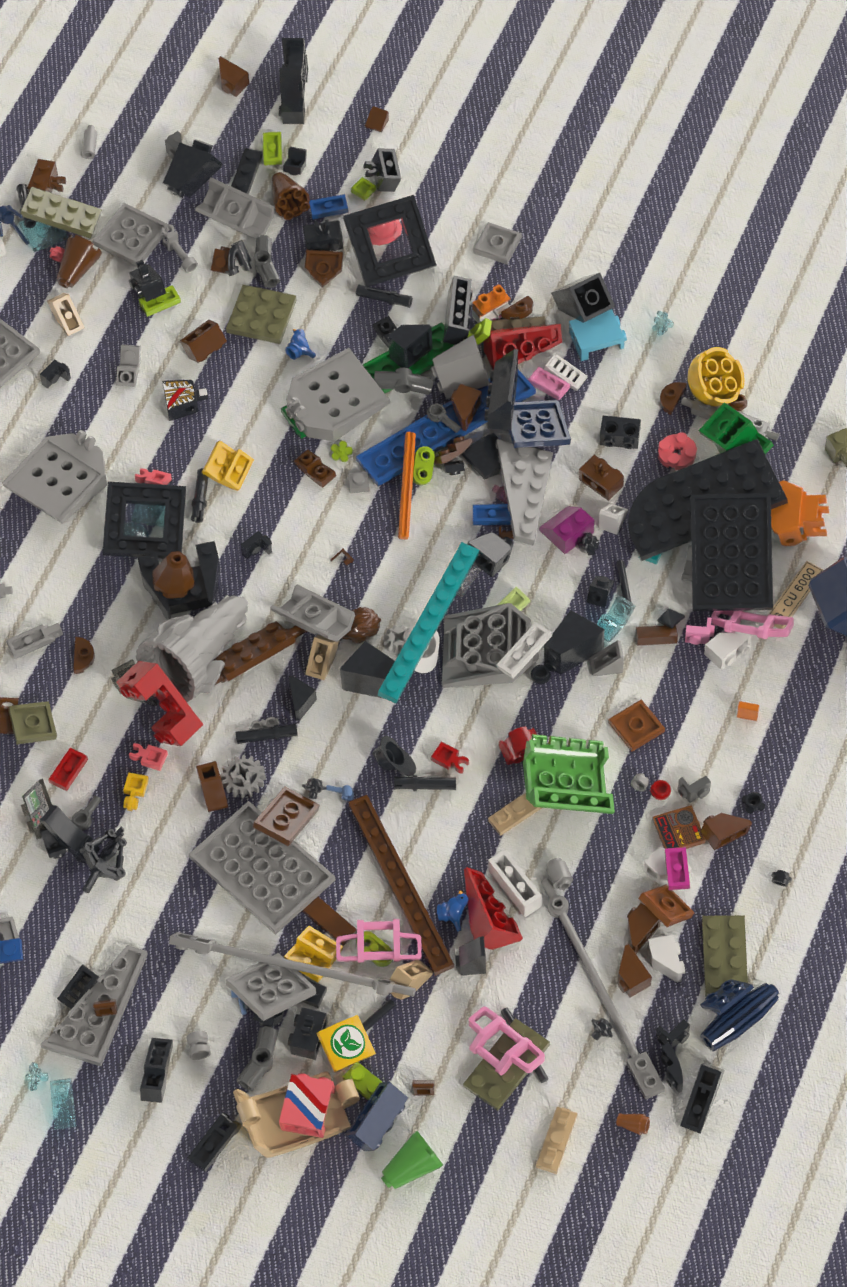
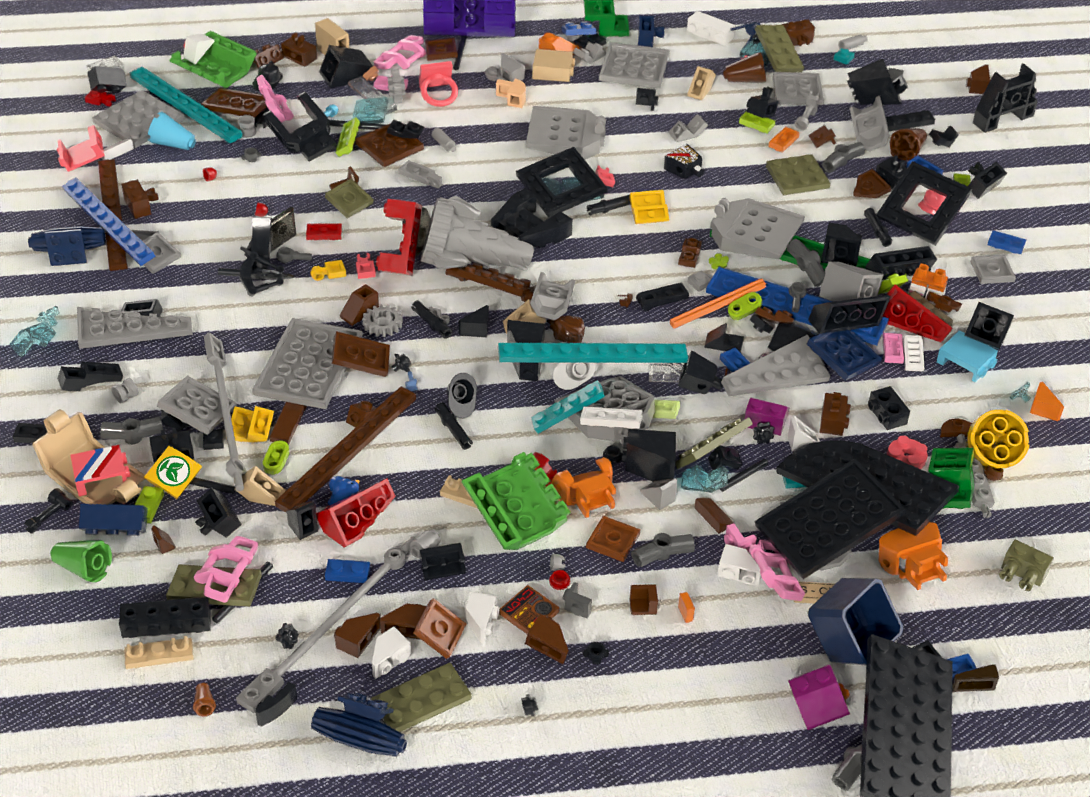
camera: 55 degrees right, 15 degrees down
(83, 655) = (428, 201): reddish brown plate -> none
(104, 163) = (844, 56): none -> teal plate
(105, 1007) = (125, 323): reddish brown slope -> none
(173, 576) = (521, 205): reddish brown cone -> none
(203, 294) = (784, 139): none -> orange plate
(203, 341) = (741, 151): reddish brown brick -> none
(239, 250) = (835, 139): black plant -> none
(255, 543) = (592, 246): black bracket -> none
(272, 148) = (942, 122): lime plate -> none
(298, 345) = (788, 200): blue animal -> none
(319, 1158) = (58, 500): none -> black brick
(361, 852) = (359, 412): none -> reddish brown bracket
(362, 523) = (662, 296): none -> black plate
(377, 119) = (1029, 163): reddish brown slope -> none
(382, 955) = (291, 459): bright pink bar -> none
(425, 1025) = (217, 514): none -> black brick
(447, 756) = (488, 430): red plate -> none
(452, 508) = (720, 340): none -> black slope
(465, 404) = (816, 297): reddish brown slope -> none
(473, 209) = (1006, 242): none -> blue plate
(473, 678) = (567, 406): none -> teal plate
(515, 883) = (392, 515): white brick -> none
(523, 1118) = (165, 617): none -> black brick
(549, 950) = (347, 571): none -> blue plate
(572, 711) = (587, 489): none -> orange piece
(585, 585) = (712, 442): none -> olive plate
(588, 870) = (442, 561): none -> black hinge
(670, 618) = (738, 515): black slope -> none
(676, 684) = (662, 547): none -> dark grey piece
(676, 1036) = (310, 692): black bracket -> none
(677, 868) = (476, 613): dark pink plate -> none
(686, 314) = (1046, 404): none -> orange slope
(702, 1097) = (261, 738): black slope -> none
(721, 738) = (643, 599): none -> reddish brown panel

